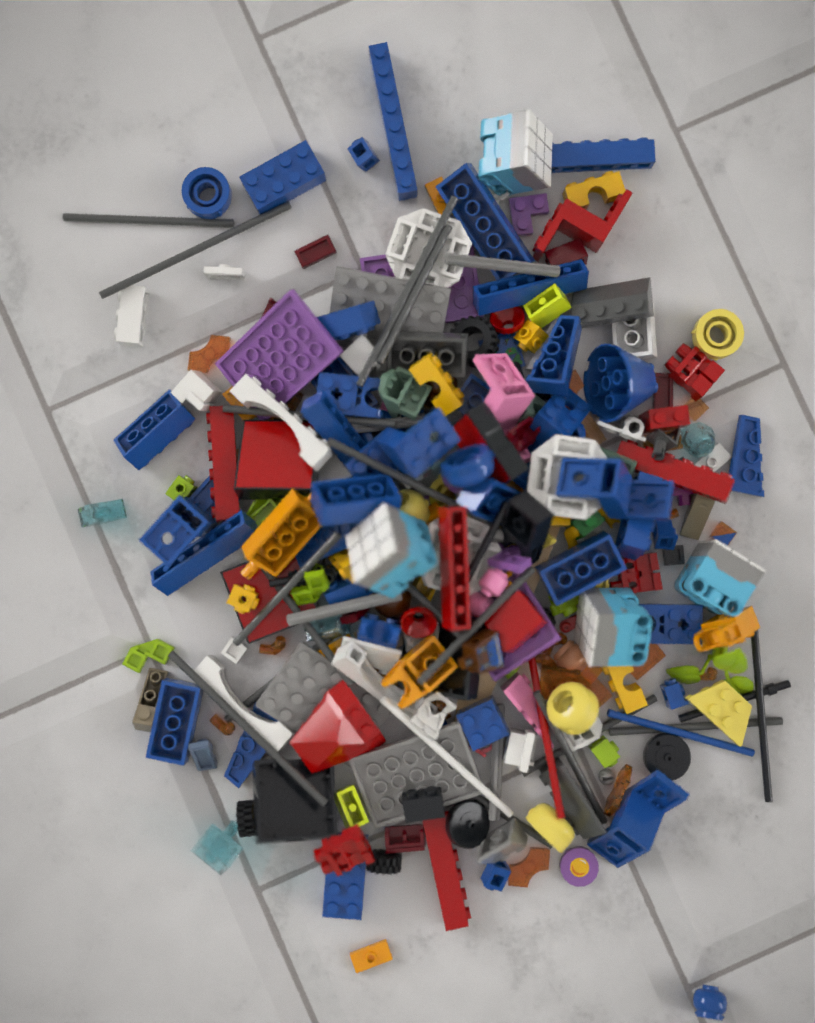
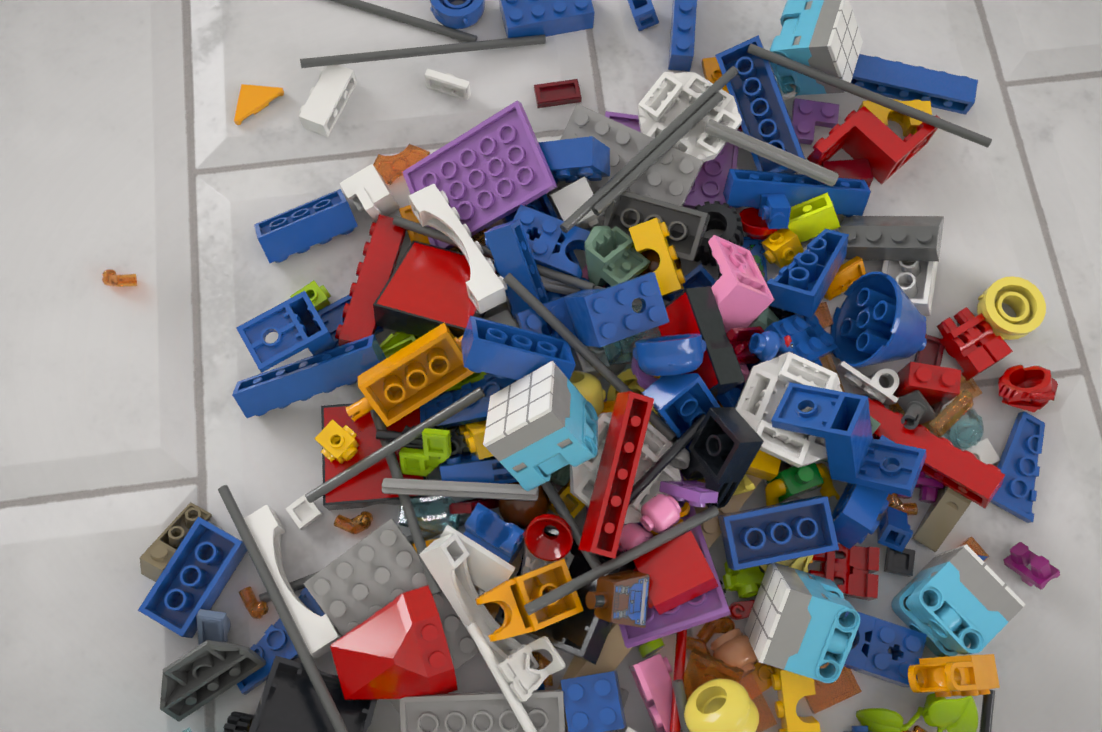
camera: 15 degrees right, 15 degrees down
(28, 518) = (111, 279): none -> clear orange arm
(72, 333) = (254, 99): none -> light orange tile
(101, 513) = (207, 299): clear light blue slope -> none
(139, 654) = (185, 481): lime tile -> none
(210, 785) = (205, 675): none -> dark grey wedge
(517, 310) = (775, 210): none -> blue brick
(539, 432) = (768, 344): none -> blue animal
(567, 190) = (869, 95): none -> dark grey piece
(587, 343) = (845, 277): none -> light orange plate
(688, 437) = (951, 413): none -> clear orange tile
(741, 396) = (1027, 387): none -> red helmet
(774, 536) = (1041, 569): none -> magenta hips

